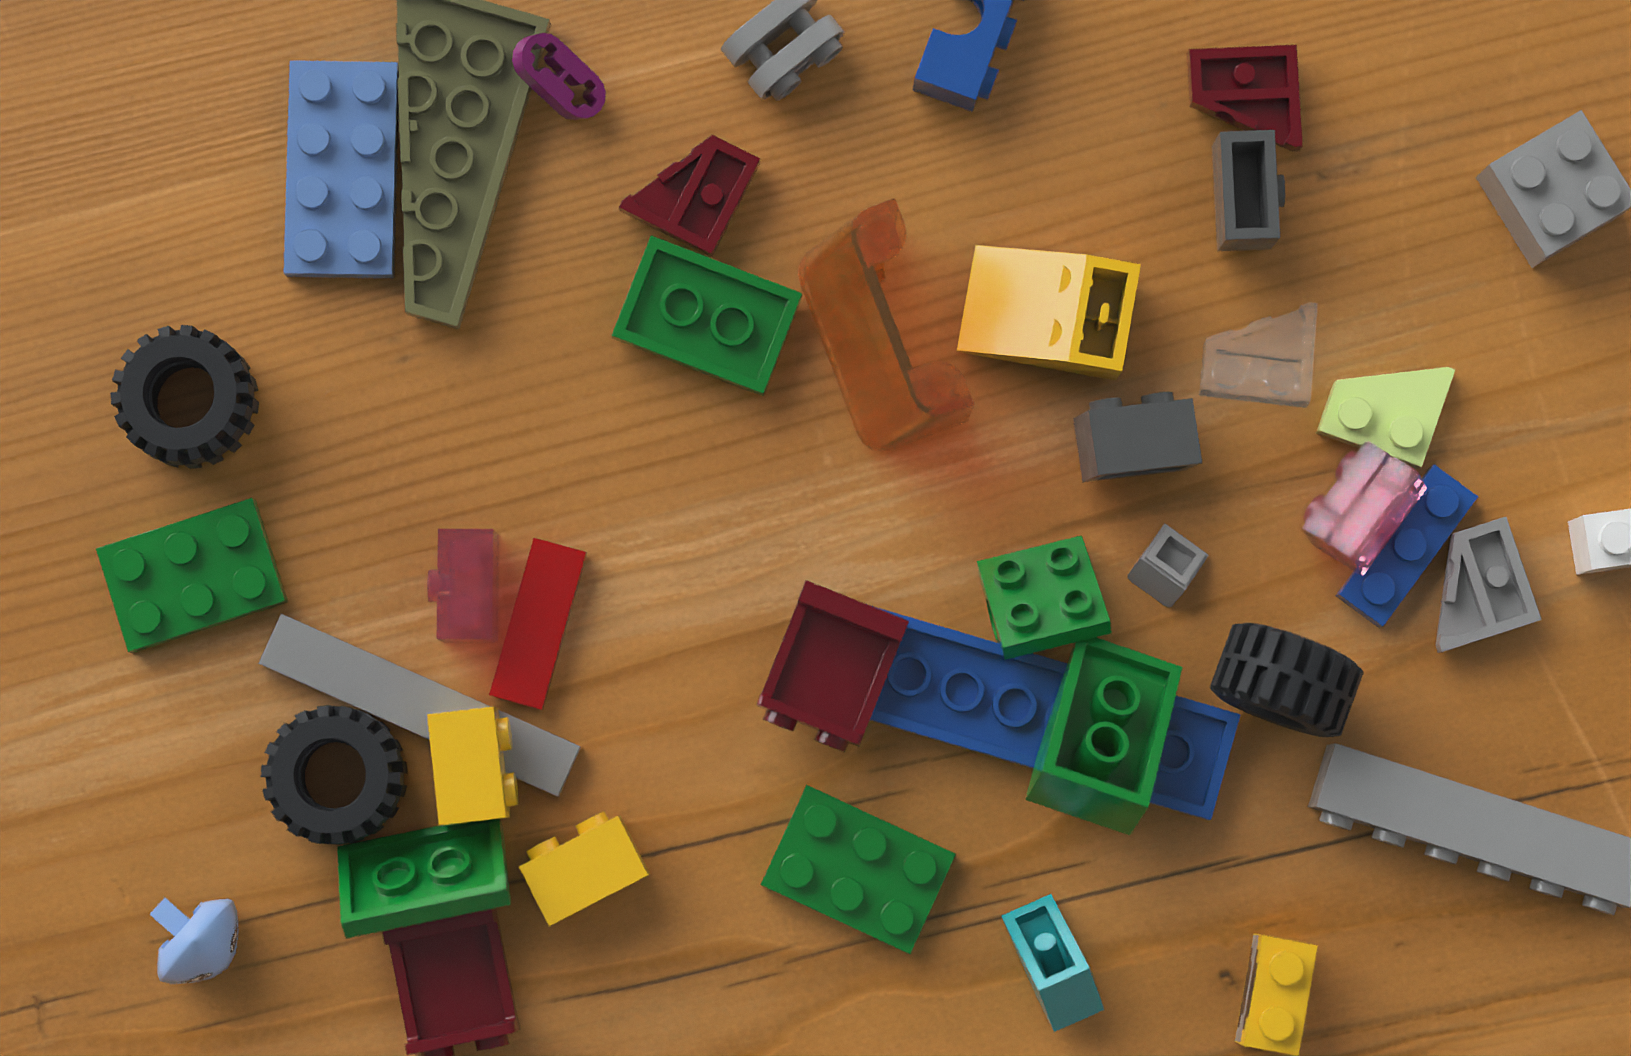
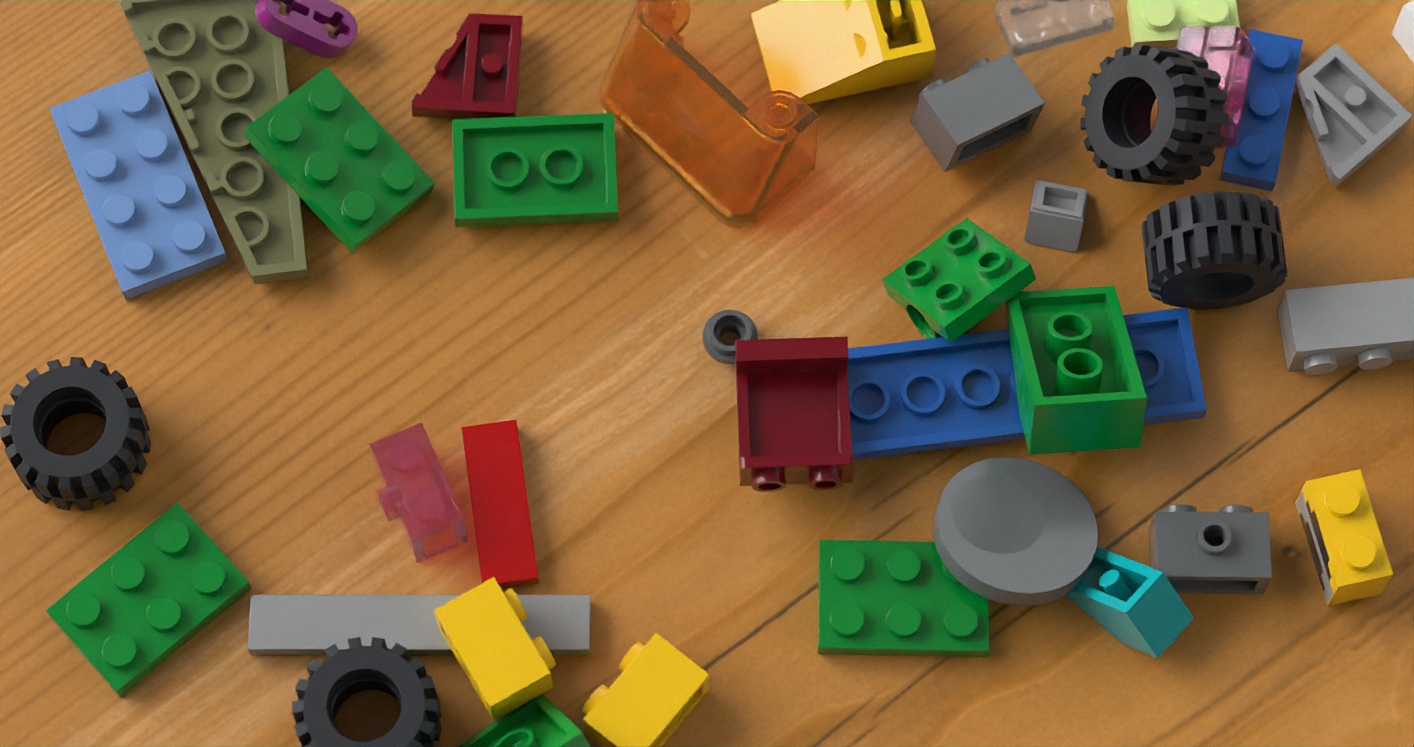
camera: 20 degrees left, 15 degrees down
(531, 230) = (339, 159): none -> green plate
(819, 538) = (725, 322): none -> dark grey plate
(983, 857) = (1015, 531): none -> dark grey piece
(1150, 951) = (1212, 549): none -> dark grey brick
(1326, 530) = (1186, 122): none -> black tyre

